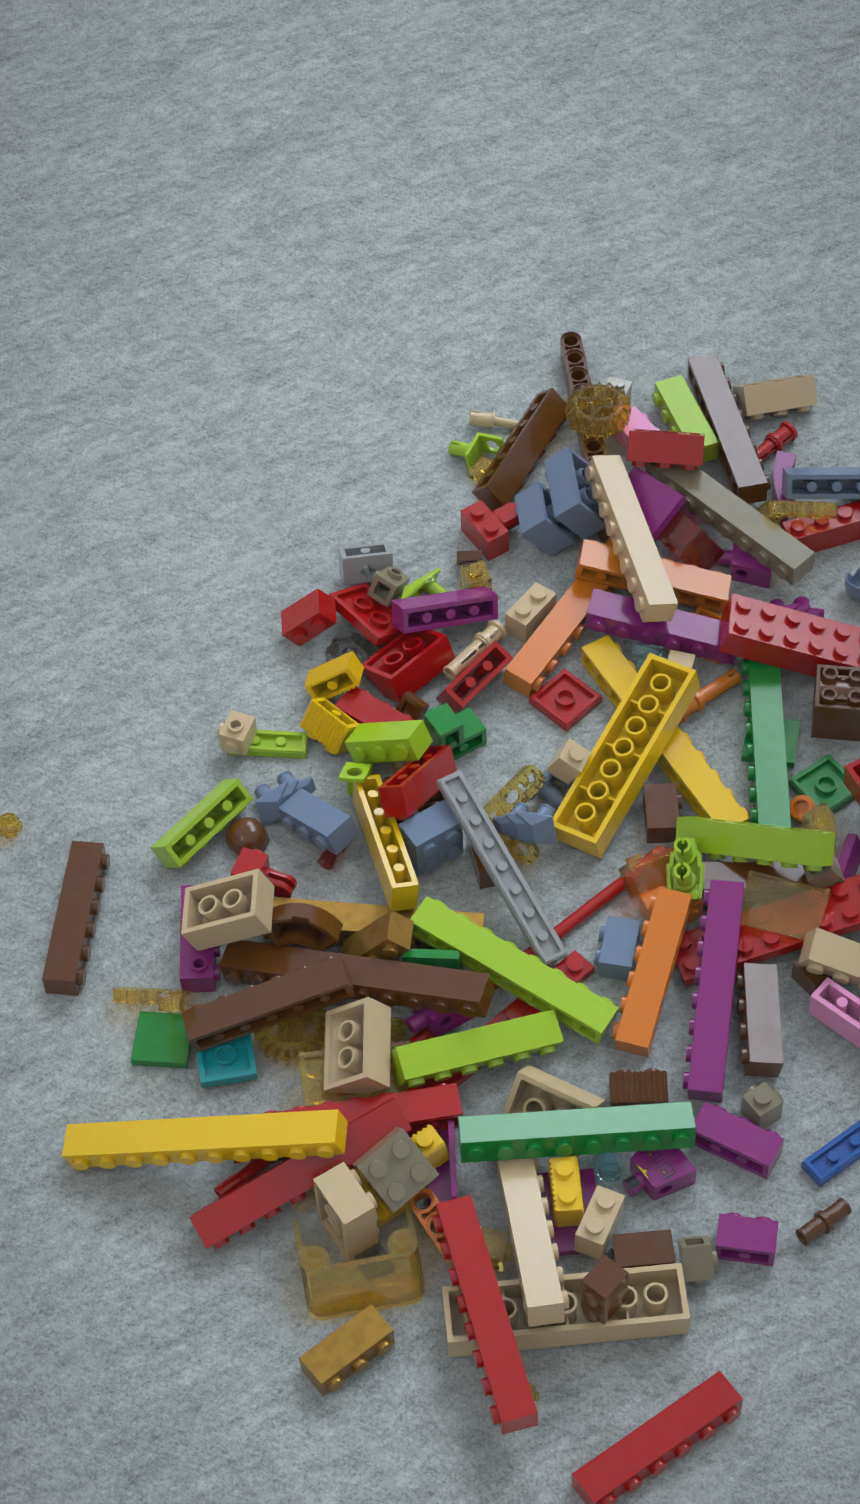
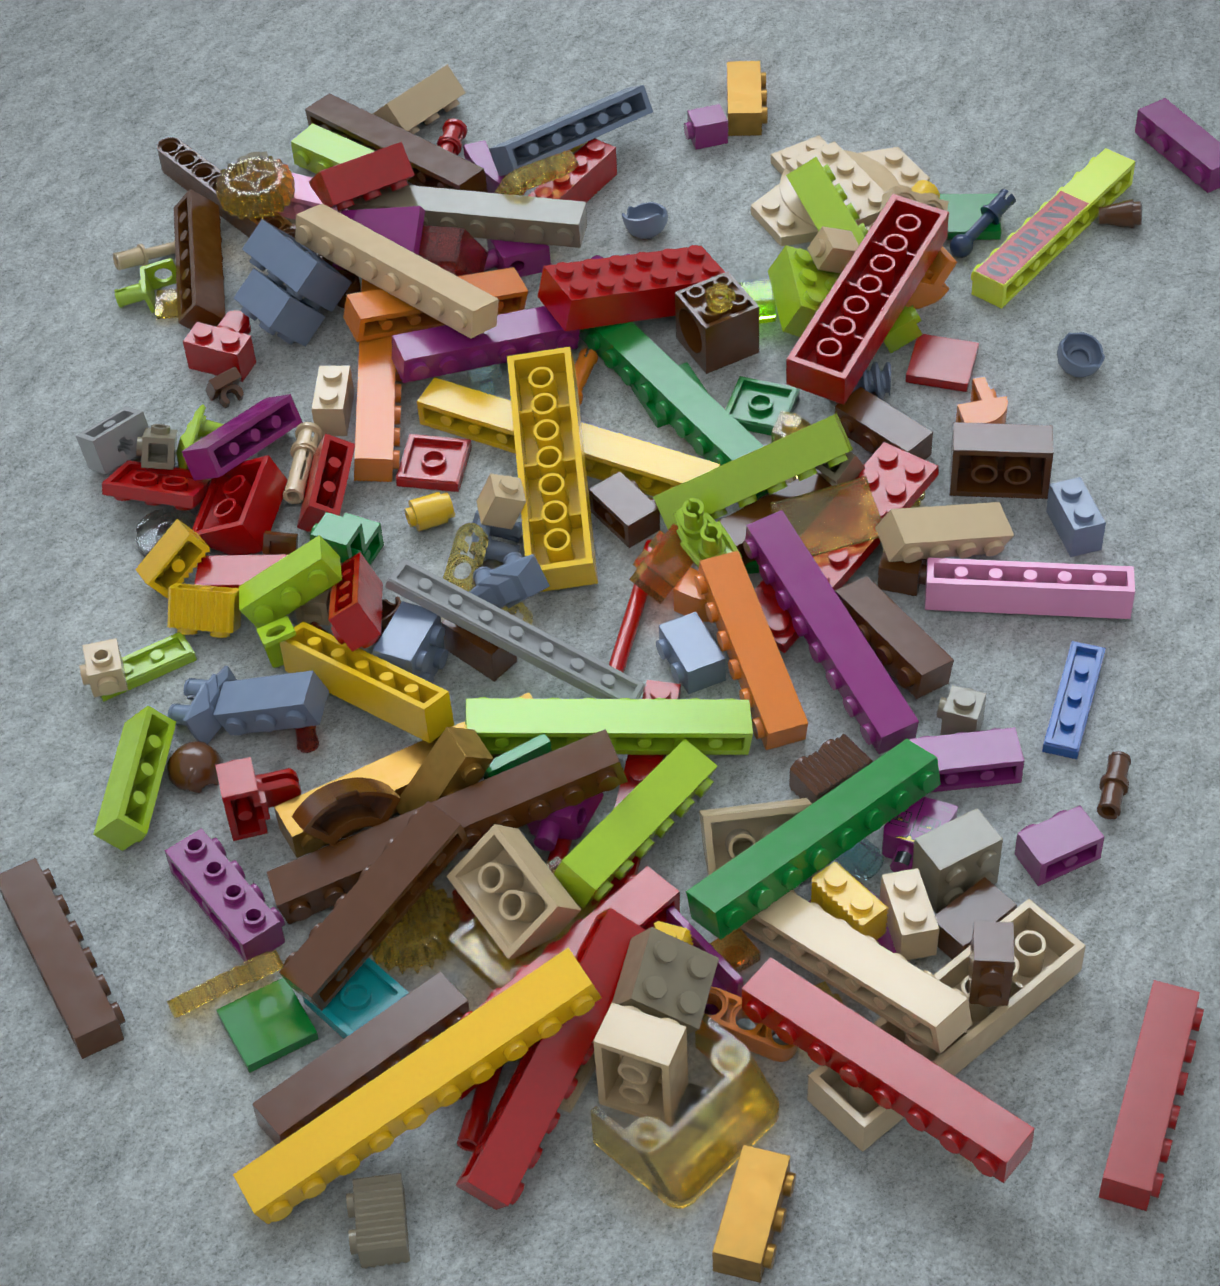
camera: 35 degrees left, 5 degrees down
(132, 1207) = (379, 1220): none -> dark tan brick
(198, 1097) = (360, 1057): none -> brick
(228, 910) = (255, 832): tan brick -> none
(308, 617) = (94, 518): red brick -> none
(475, 575) = (245, 394): clear yellow brick -> none
(475, 1176) = (737, 950): none -> clear orange plate
(530, 737) = (429, 511): none -> yellow brick
(662, 1205) = (957, 857): none -> dark tan brick
(697, 1259) = (1032, 882): dark tan brick -> none
(800, 805) = (760, 430): orange tile -> none
(837, 689) = (719, 305): none -> clear yellow plate

